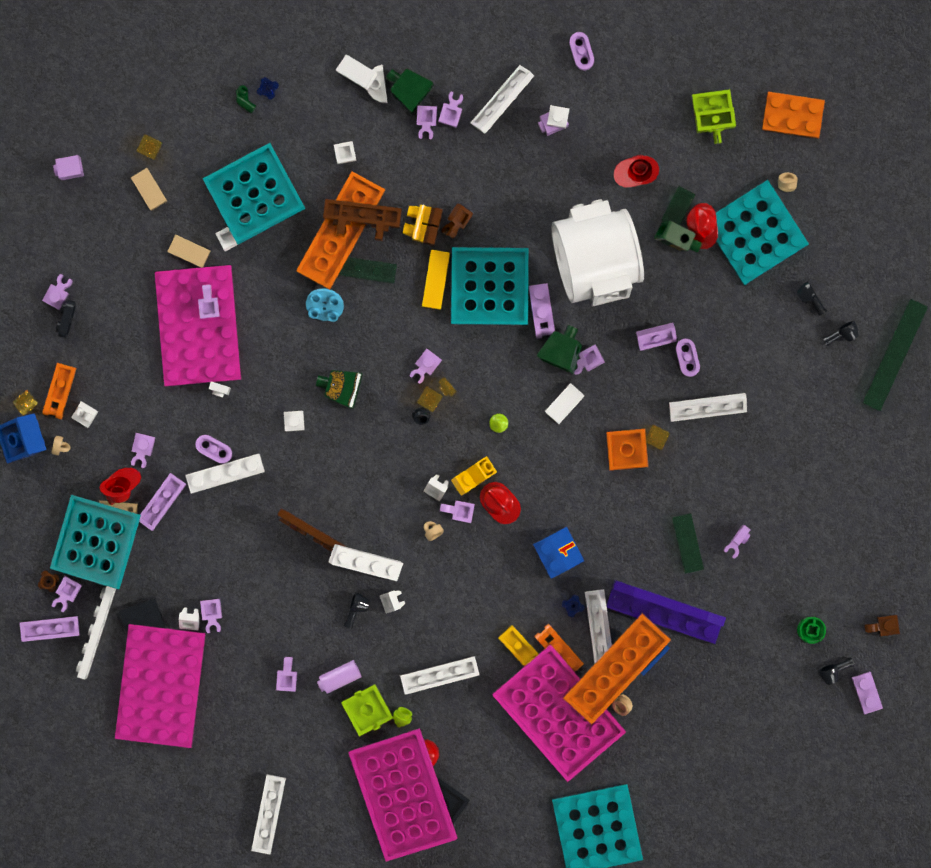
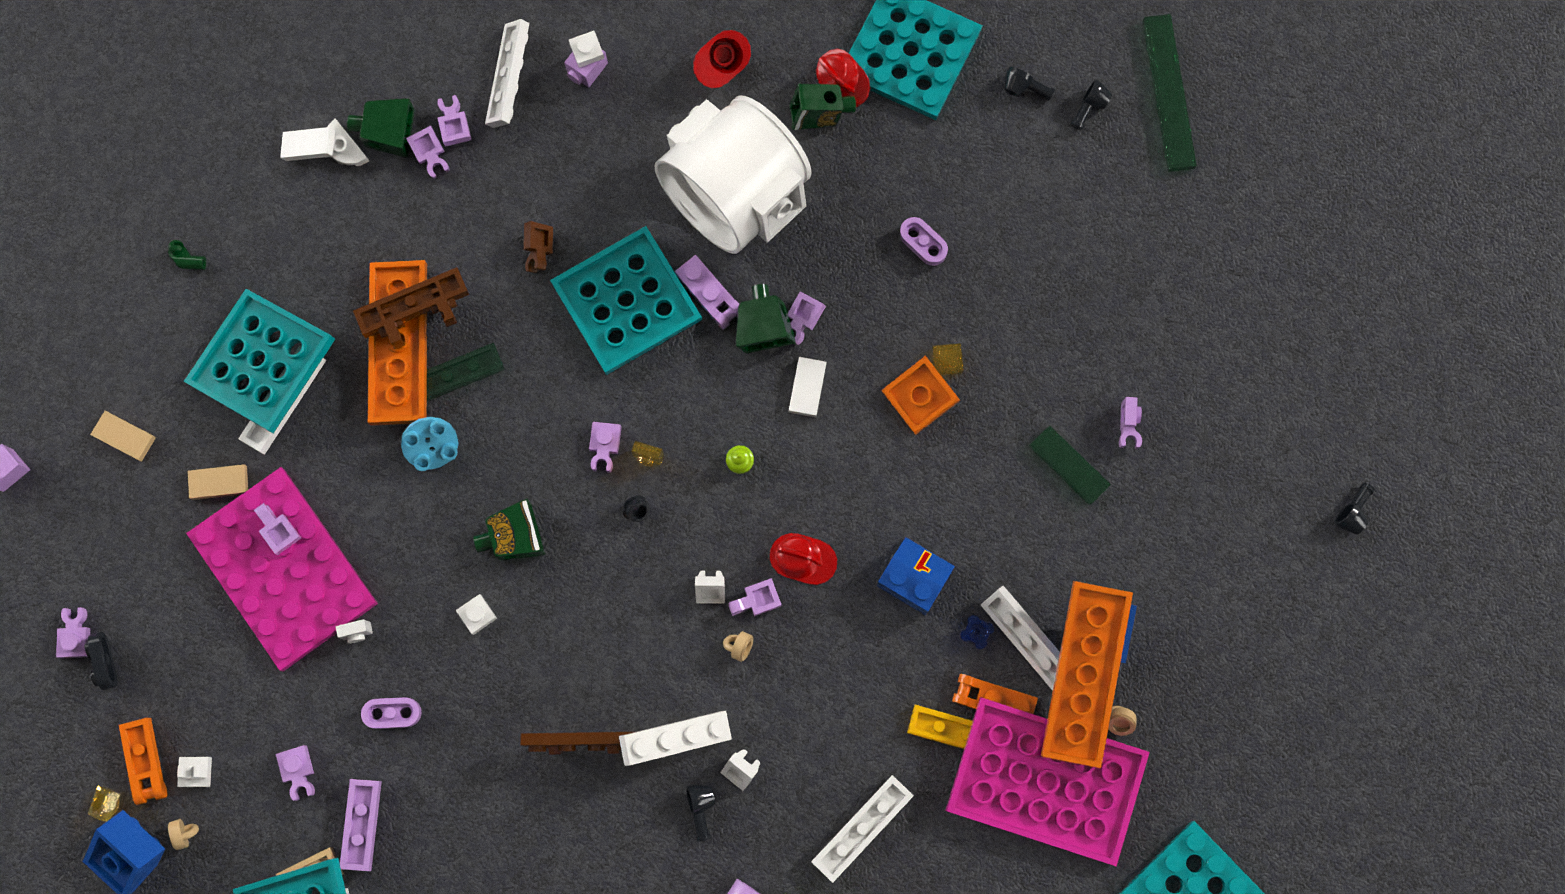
camera: 30 degrees left, 10 degrees down
(120, 484) = (291, 837): red piece -> none
(149, 147) = (94, 383): clear yellow plate -> none
(225, 473) = (424, 736): white plate -> none
(267, 83) = (200, 224): clear blue plate -> none
(345, 152) = (348, 247): white plate -> none
(427, 216) = (502, 274): yellow hips -> none
(429, 399) = (634, 481): clear yellow plate -> none
(436, 279) = (554, 332): yellow tile -> none
(473, 476) = (749, 544): yellow slope -> none
(656, 336) = (869, 238): lavender plate -> none
(665, 612) = (1106, 572): dark purple plate -> none
(678, 206) = (797, 69): clear green tile -> none
(708, 407) = (986, 284): white plate -> none
(811, 630) = (1293, 478): green wheel -> none
(867, 692) = (1412, 514): lavender plate -> none
(886, 626) = (1377, 418): reddish brown plate -> none

